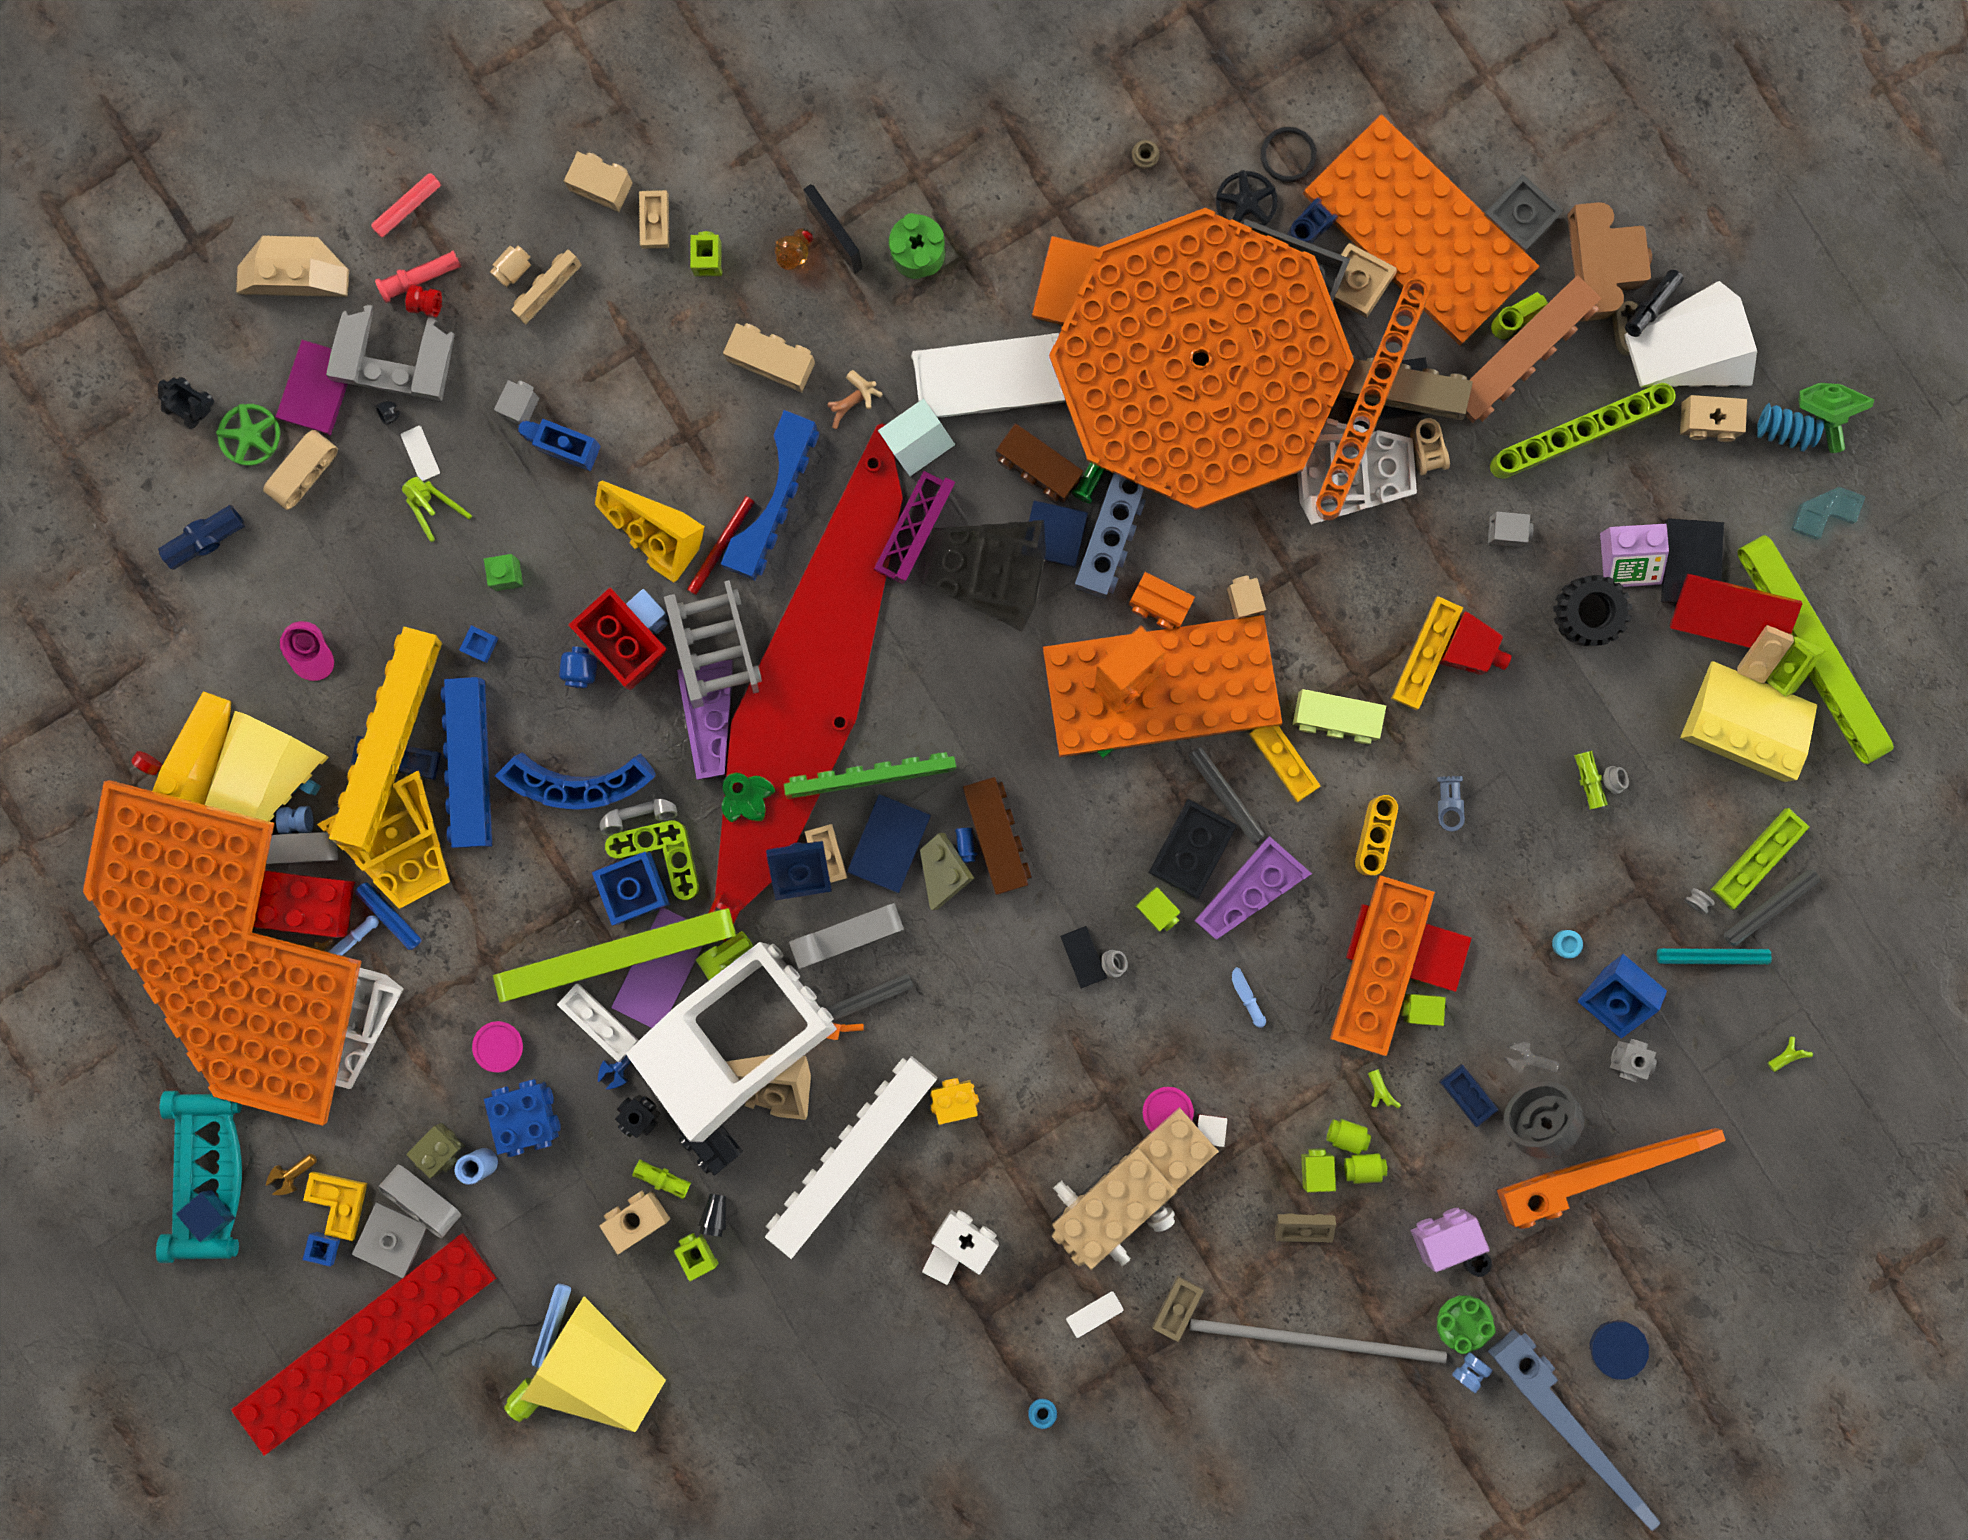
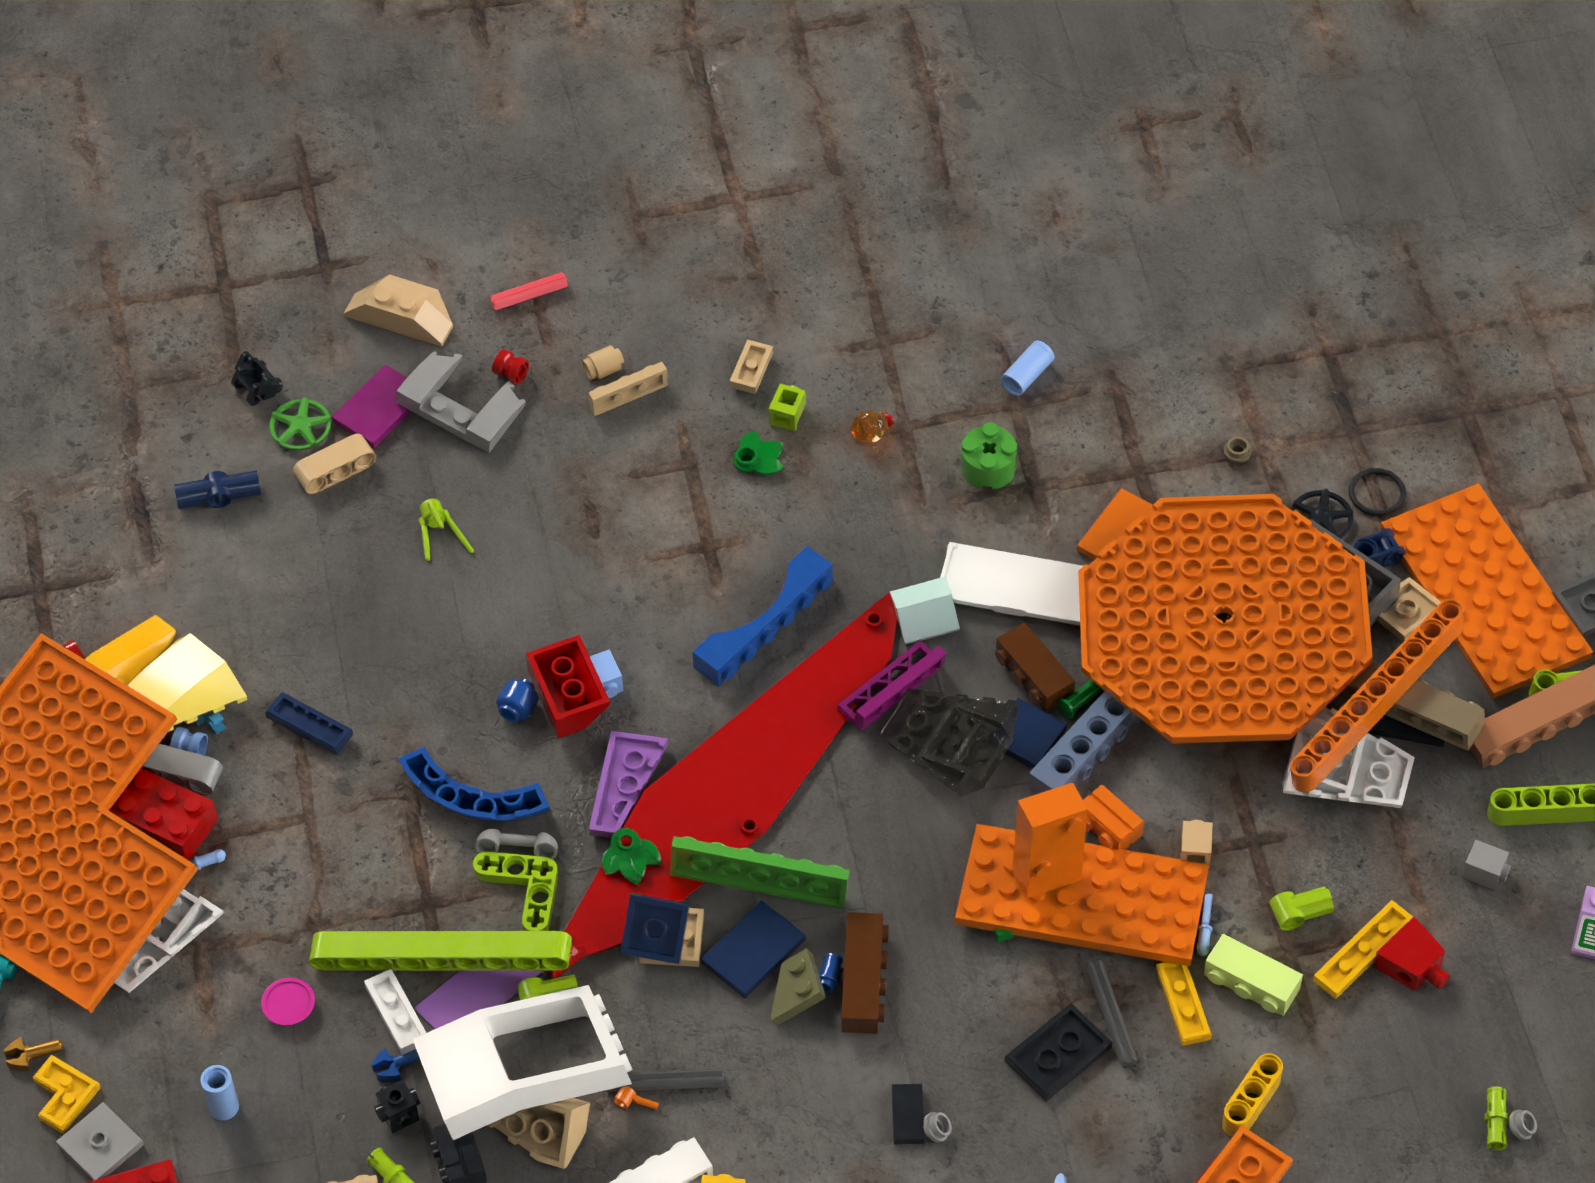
camera: 15 degrees right, 30 degrees down
(306, 651) = (269, 608): dark pink cap -> none
(314, 1251) = (25, 1120): blue piece -> none
(385, 740) = (308, 697): yellow brick -> none
(386, 412) = (434, 443): black hinge -> none
(388, 916) = (236, 855): blue axle -> none
(404, 279) = (492, 346): coral pin -> none
(406, 848) = (275, 789): yellow wedge -> none
(419, 1201) = (147, 1112): light grey beam -> none
(420, 453) = (449, 487): white sticker -> none
(436, 1151) = (182, 1073): olive head -> none
(467, 763) = (374, 748): blue brick -> none
(478, 644) = (432, 653): blue plate -> none
(503, 572) = (483, 600): bright green brick -> none
(516, 402) = (558, 471): light grey brick -> none
(522, 1117) = (282, 1071): blue brick -> none
(561, 443) = (586, 512): blue hinge -> none
(598, 180) = (713, 322): tan brick -> none
(631, 888) = (483, 898): blue brick -> none
(661, 532) = (642, 611): yellow wedge -> none
(692, 663) = (629, 724): light grey fence -> none
(699, 312) = (761, 455): none -> green plate
(720, 545) = (686, 653): red bar -> none
(769, 356) = (811, 504): tan brick -> none
(833, 228) = (915, 417): black tile -> none
(844, 405) = (866, 566): nougat bar -> none
(846, 935) = (673, 1013): light grey beam -> none
(864, 386) = (892, 556): tan bar -> none
(917, 130) = (1027, 368): none -> light blue pin
(1158, 910) = (1001, 1091): lime brick -> none
(1257, 883) = (1108, 1103): medium lavender wing -> none
(1281, 683) = (1204, 929): none -> light blue piece
(1355, 633) = (1293, 909): none -> lime piece
(1429, 448) = (1429, 773): tan piece -> none
(1450, 804) = (1341, 1088): sand blue connector -> none
(1616, 610) = (1551, 937): black tyre -> none

